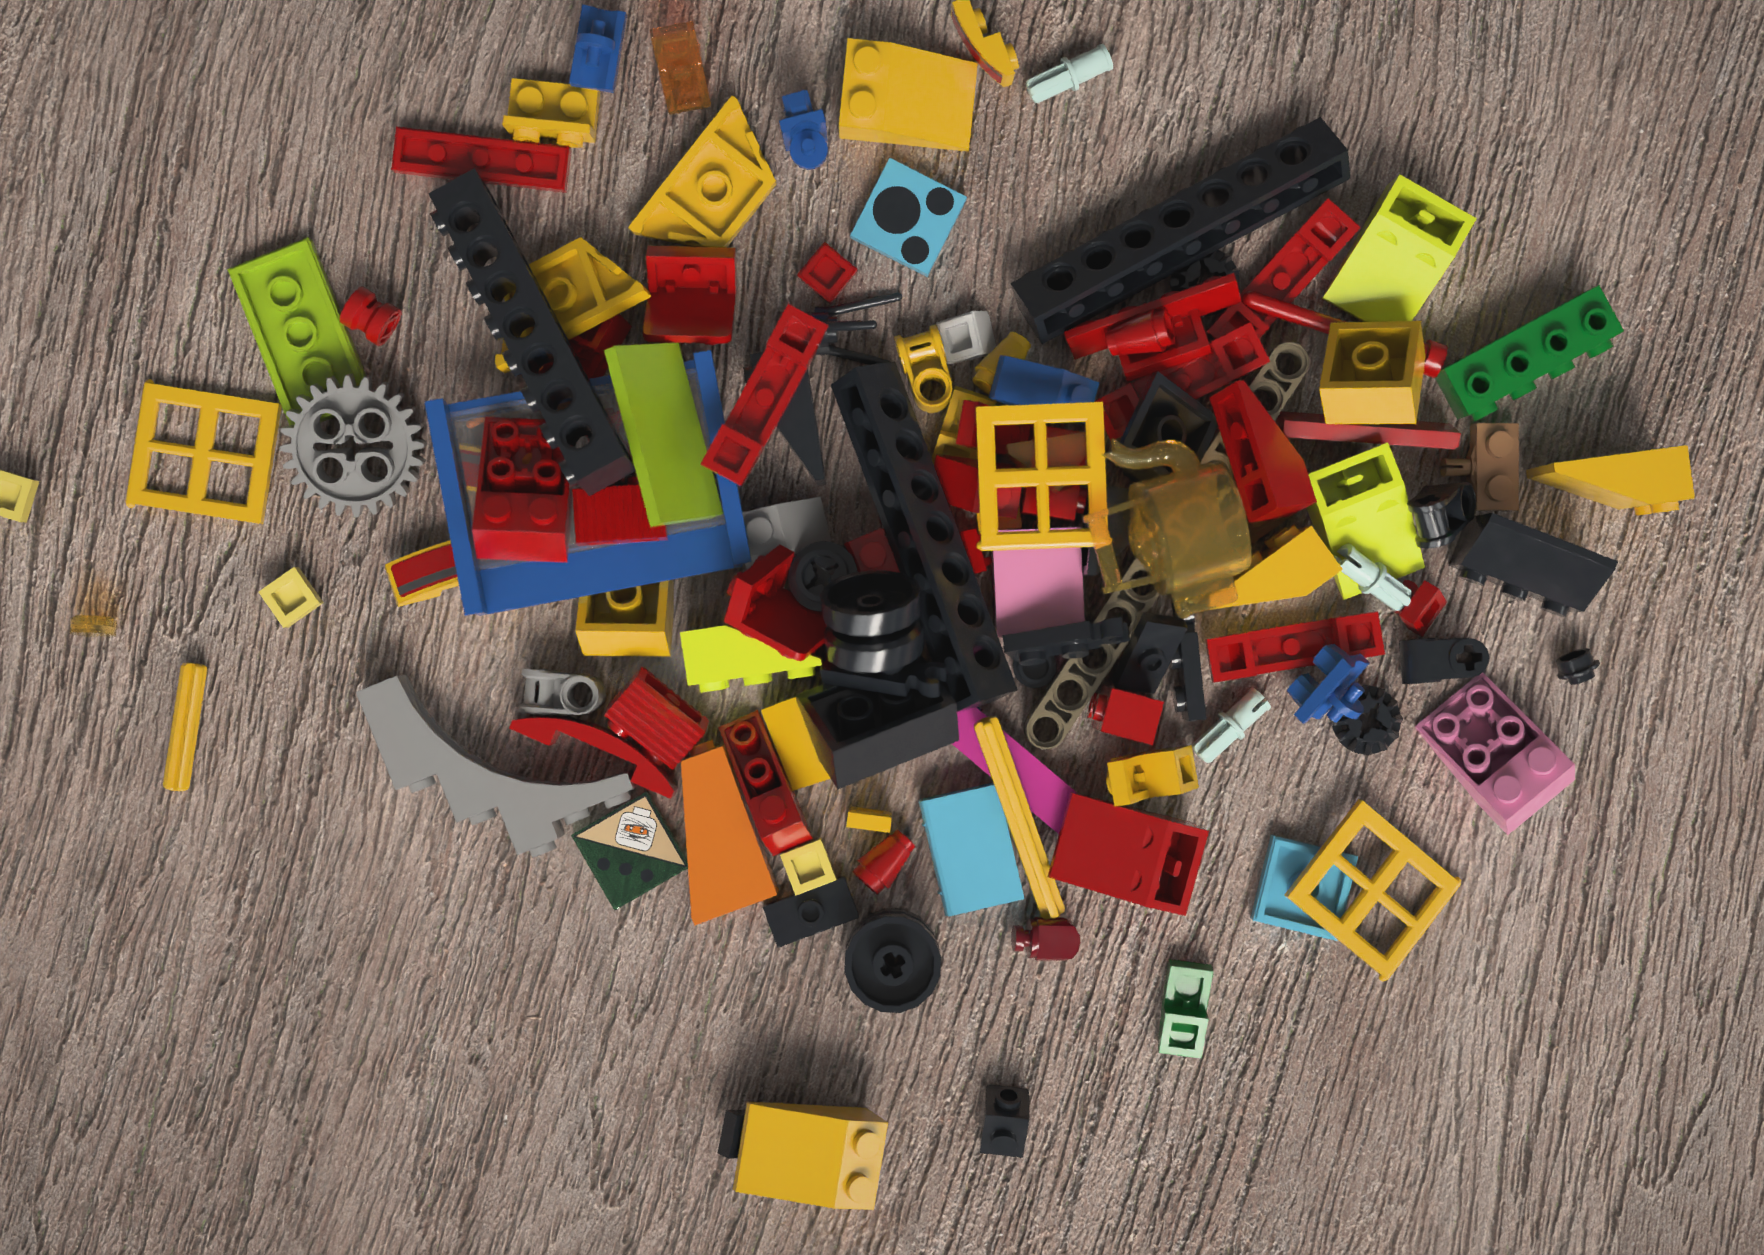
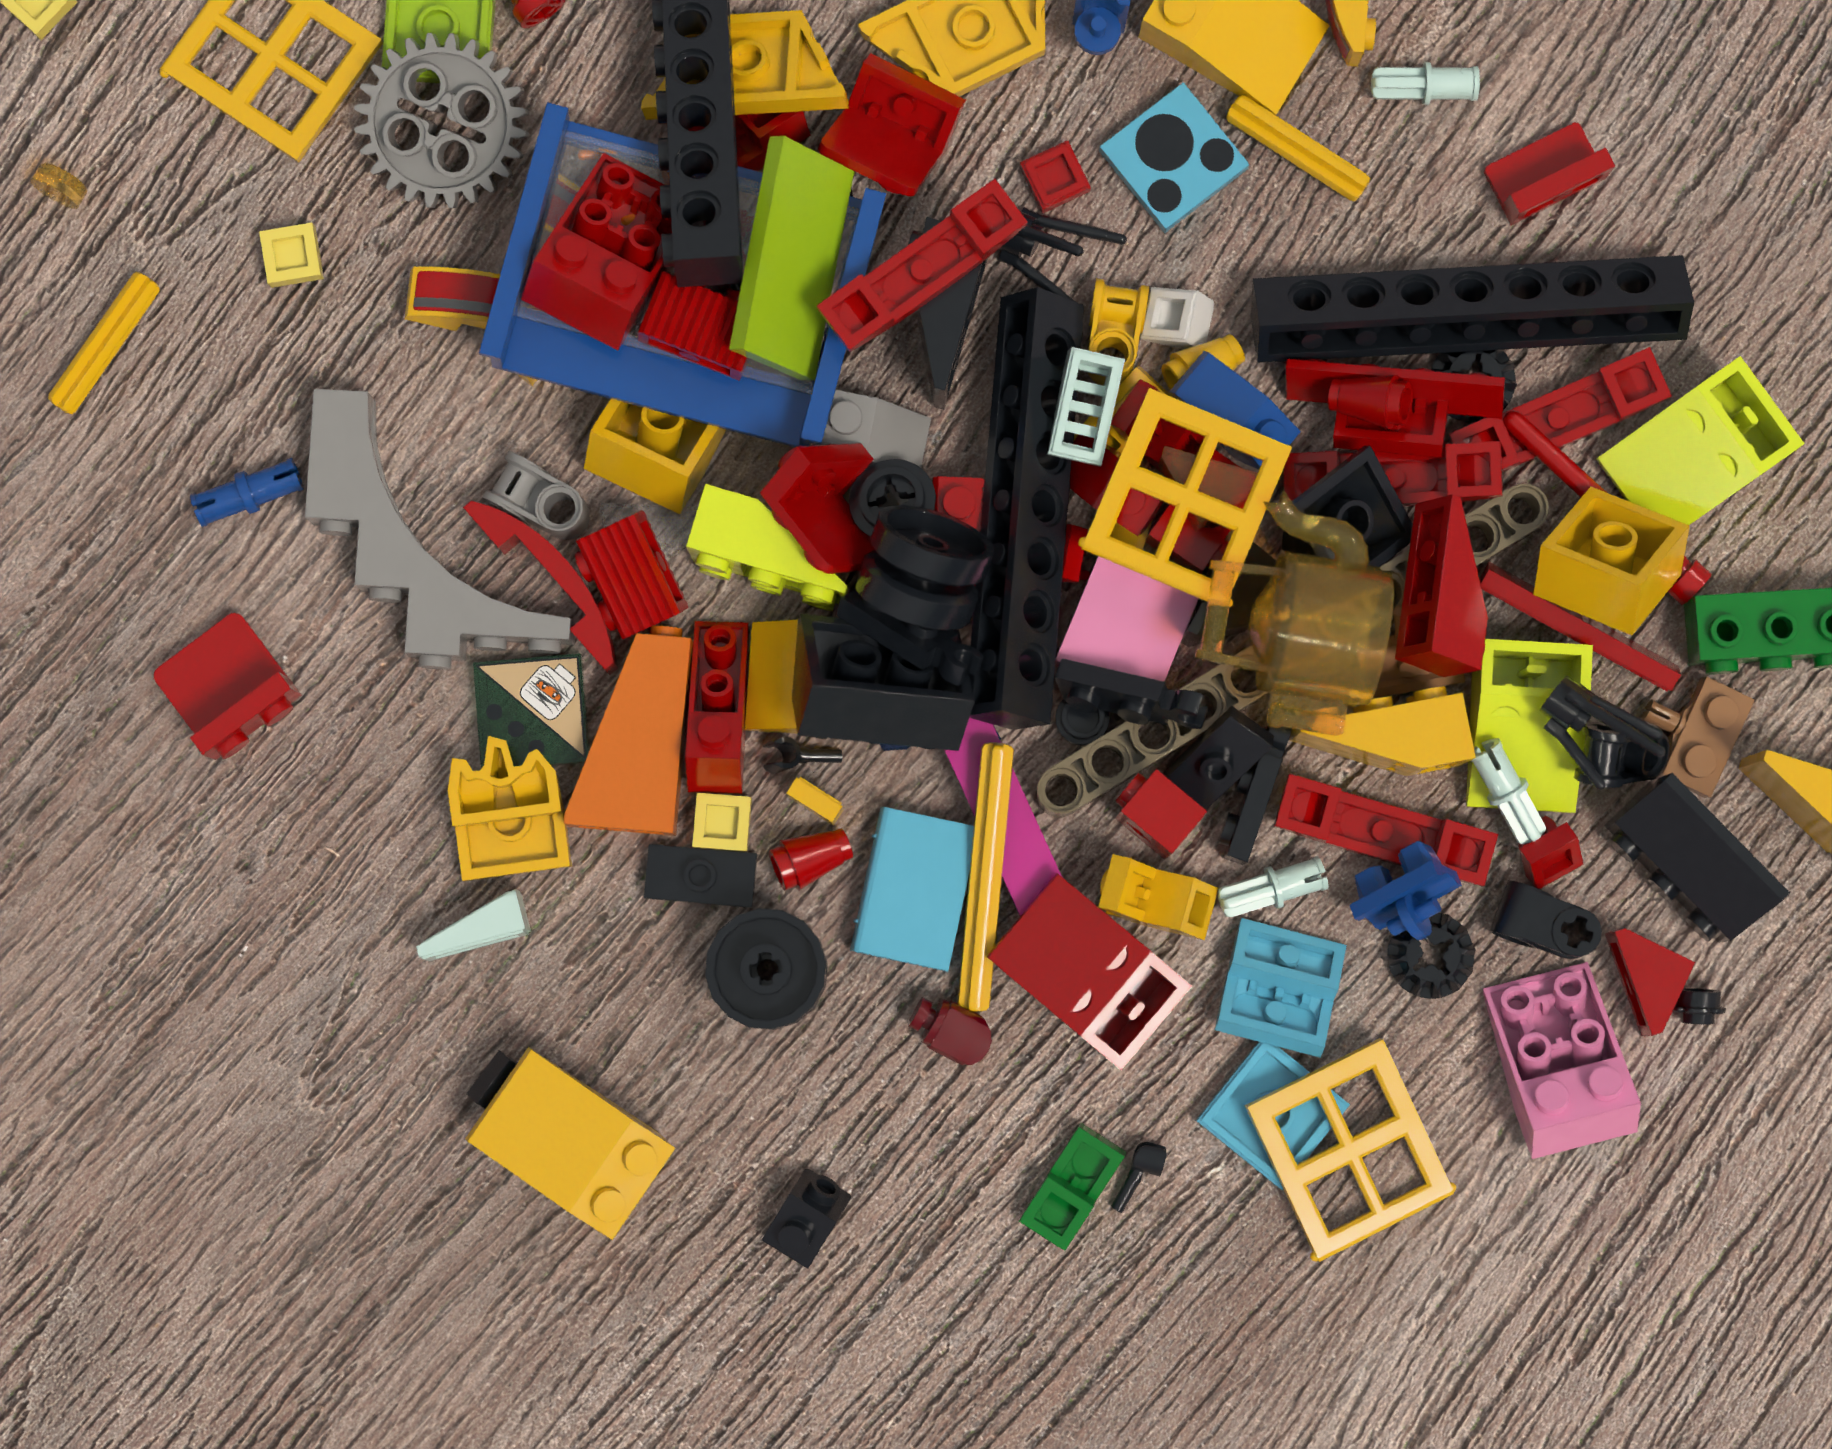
camera: 30 degrees right, 5 degrees down
(344, 787) = (247, 492): none -> blue pin
(399, 938) = (226, 687): none -> red bracket
(649, 936) = (507, 815): none -> yellow plate
(676, 1020) = (490, 924): none -> light aqua slope
(837, 795) = (794, 754): none -> black hand
(941, 403) = (1097, 364): none -> light aqua slope
(996, 167) = (1297, 148): none -> yellow axle
(1188, 99) = (1547, 172): none -> red panel
(1229, 963) = (1146, 1158): none -> black hand
(1269, 795) = (1280, 987): none -> medium azure slope
(1398, 495) = (1575, 705): none -> black plant
(1536, 664) = (1650, 977): none -> red slope

